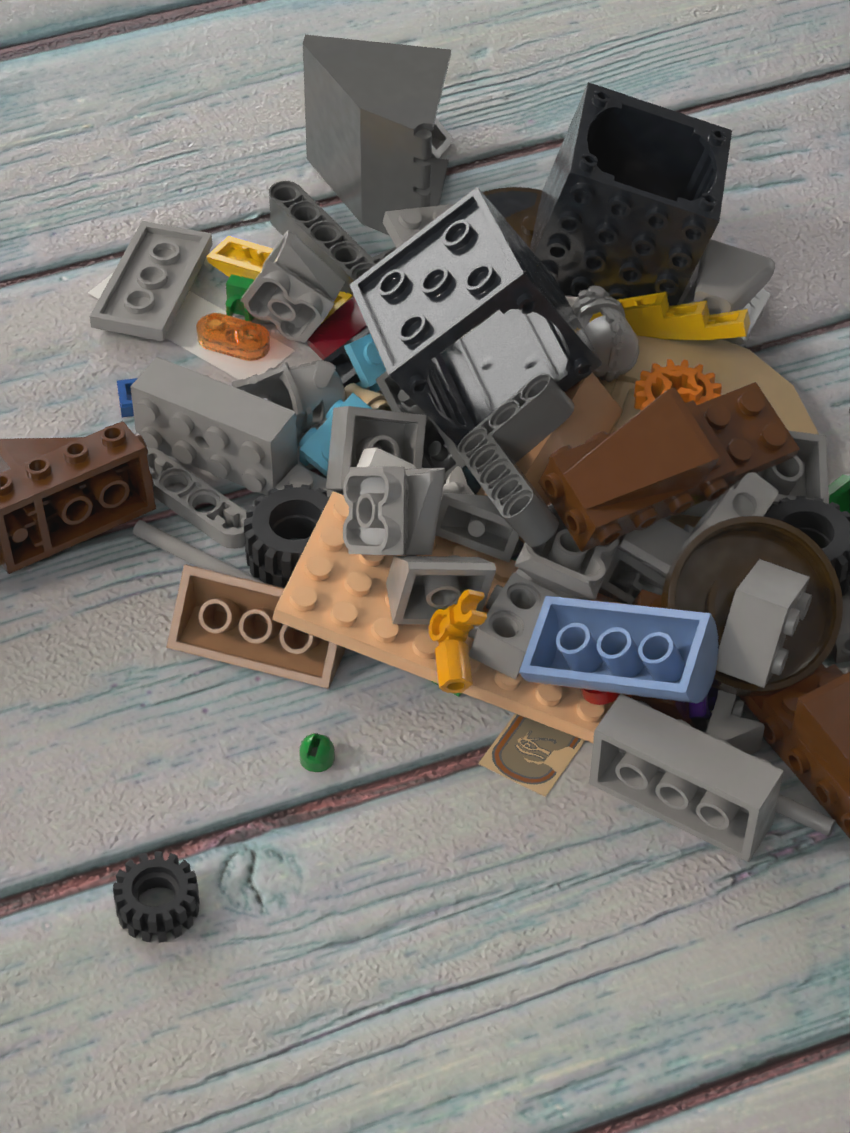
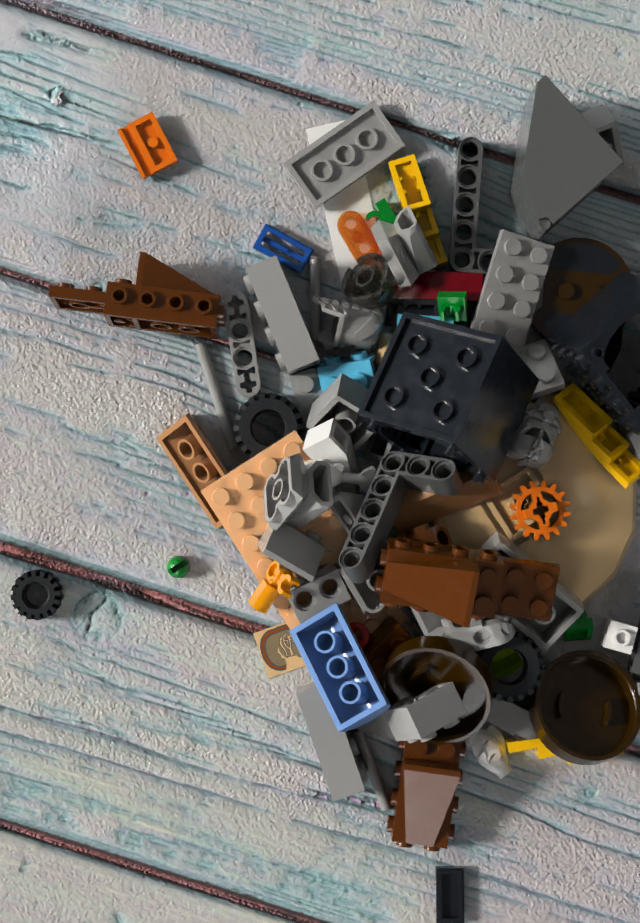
camera: 35 degrees right, 40 degrees up
(287, 338) = (370, 282): none -> clear smoke cylinder

